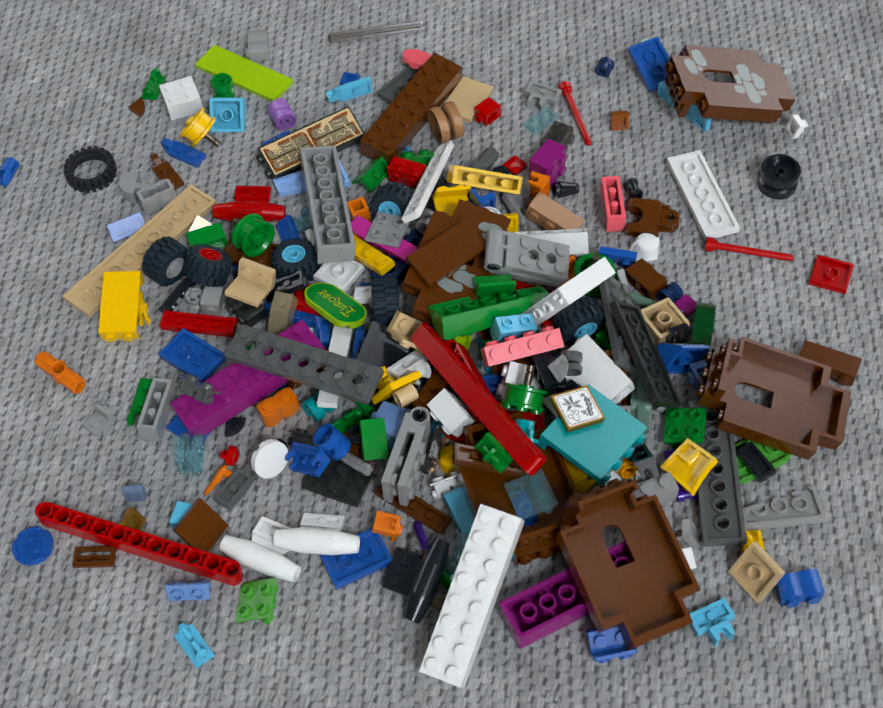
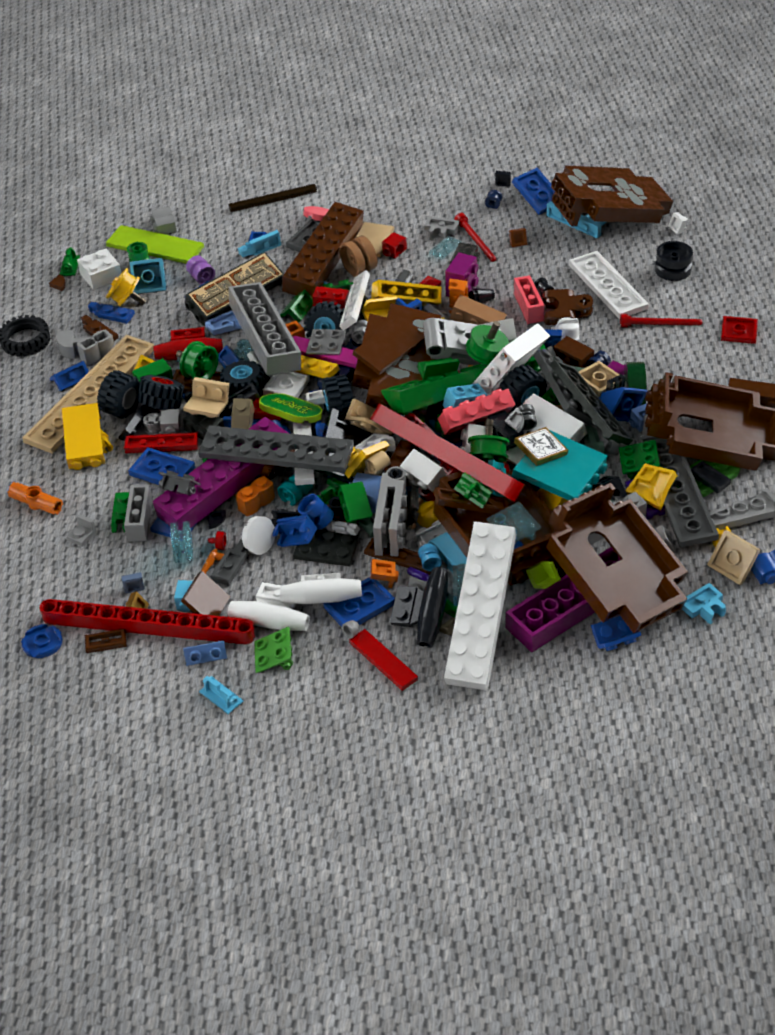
camera: 10 degrees left, 10 degrees down
(339, 590) = (350, 628): none -> light grey hinge
(366, 630) = (383, 659): none -> red tile
(437, 513) = (429, 556): none -> dark azure wheel
(547, 564) = (543, 574): none -> lime panel
(548, 269) = (486, 342): none -> green wheel
(620, 41) = (503, 178): none -> black tile

